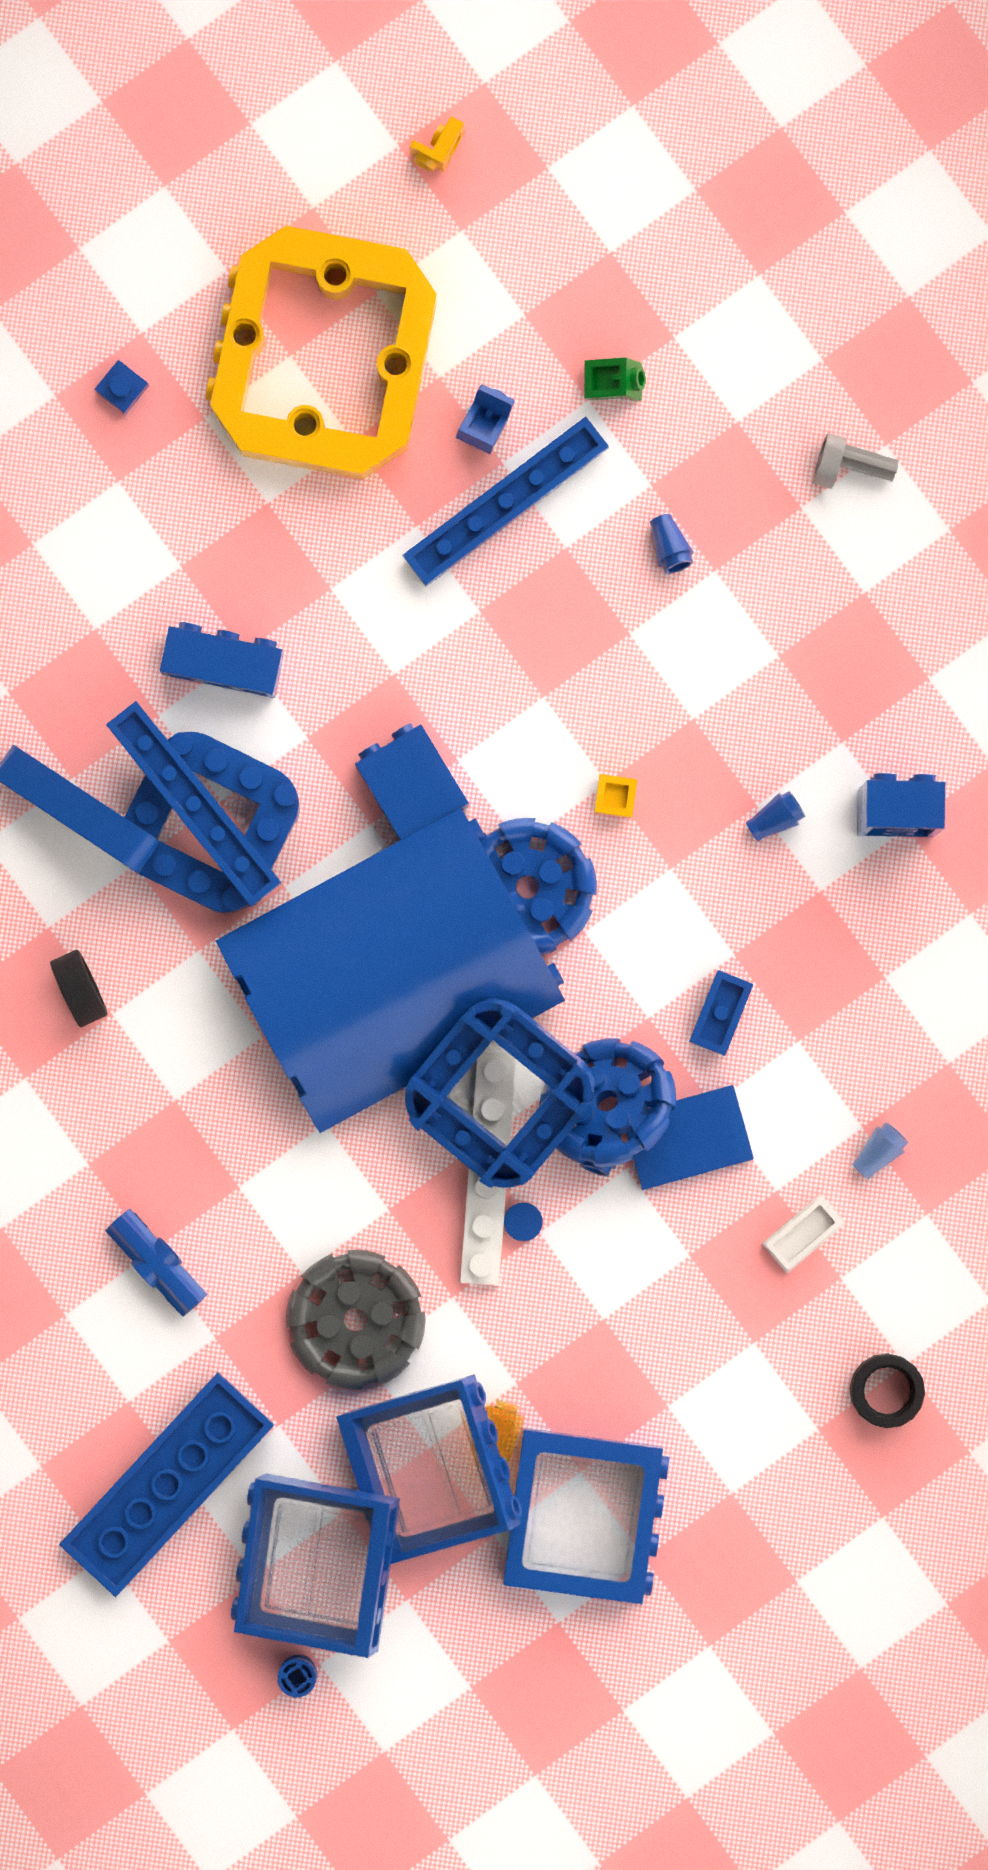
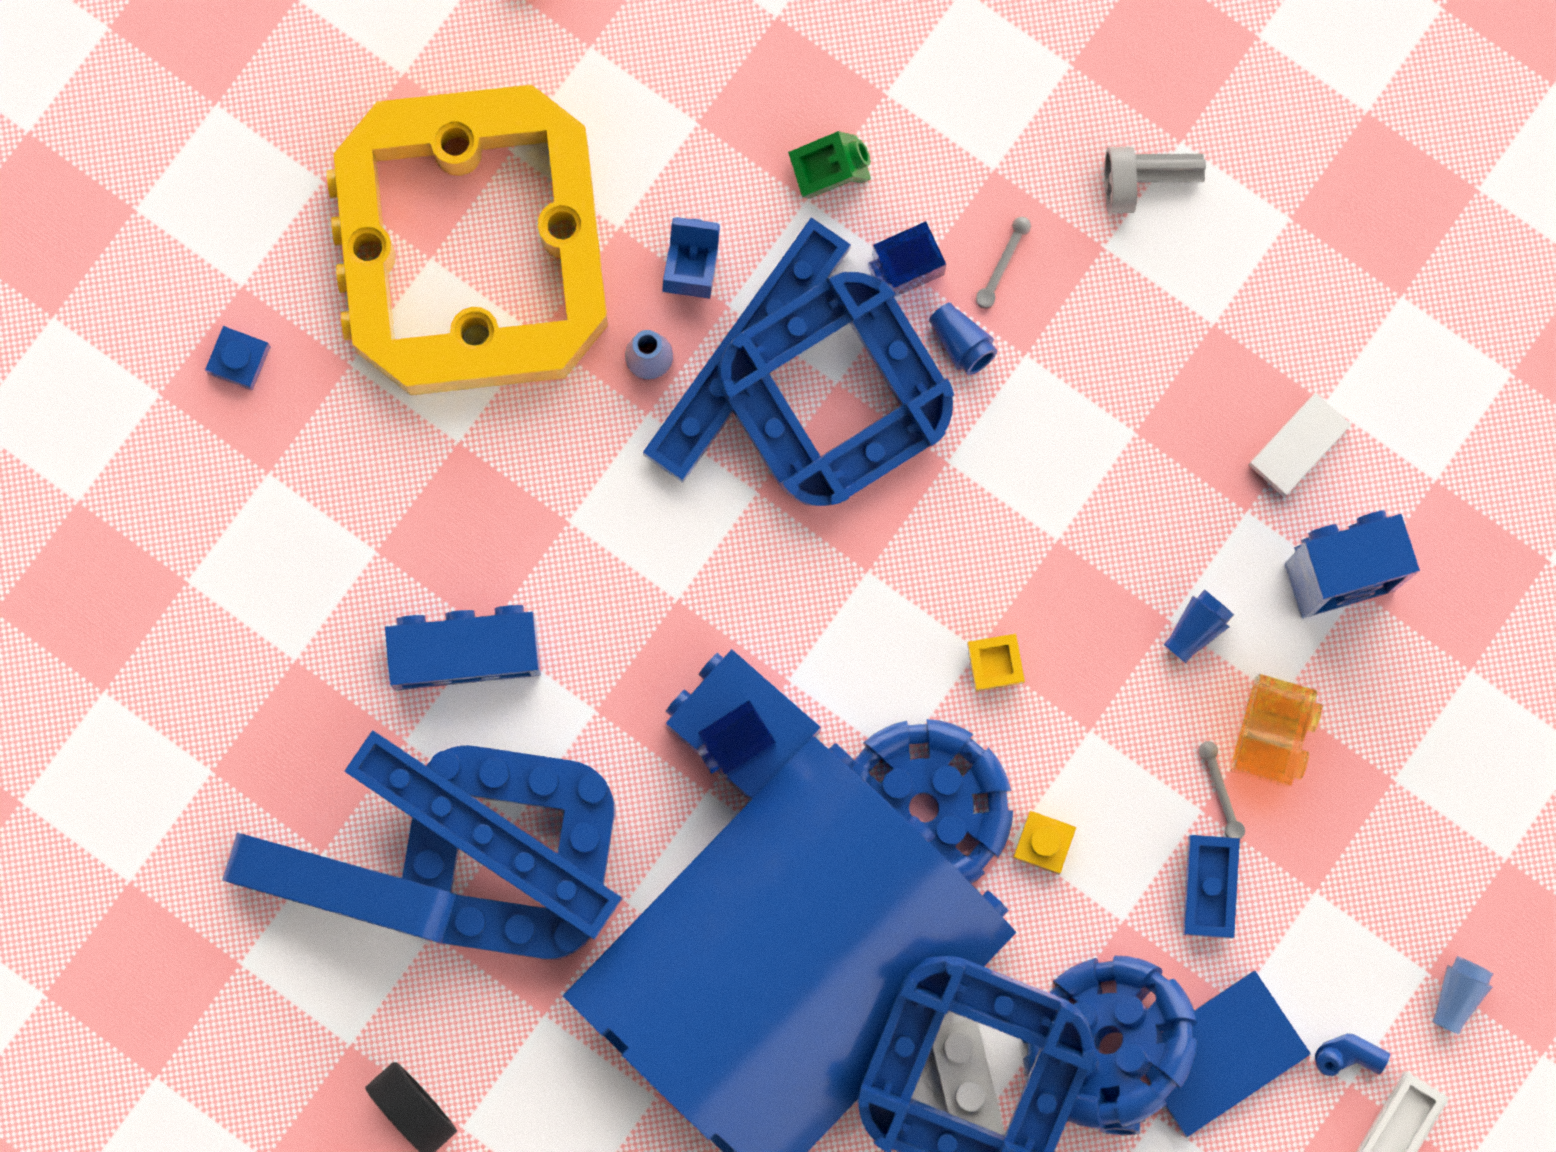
camera: 20 degrees left, 5 degrees down
(400, 793) = (735, 741): none -> clear blue brick
(430, 491) = (649, 365): none -> medium blue cone
(608, 941) = (1044, 842): none -> yellow plate
(615, 536) = (896, 352): none -> blue plate
(647, 471) = (907, 259): none -> clear blue brick
(699, 517) = (986, 296): none -> light grey hinge
(753, 912) = (1234, 828): none -> light grey hinge
(782, 1165) = (1347, 1051): none -> blue arm
(807, 912) = (1275, 731): none -> clear yellow brick
(898, 704) = (1300, 444): none -> white tile

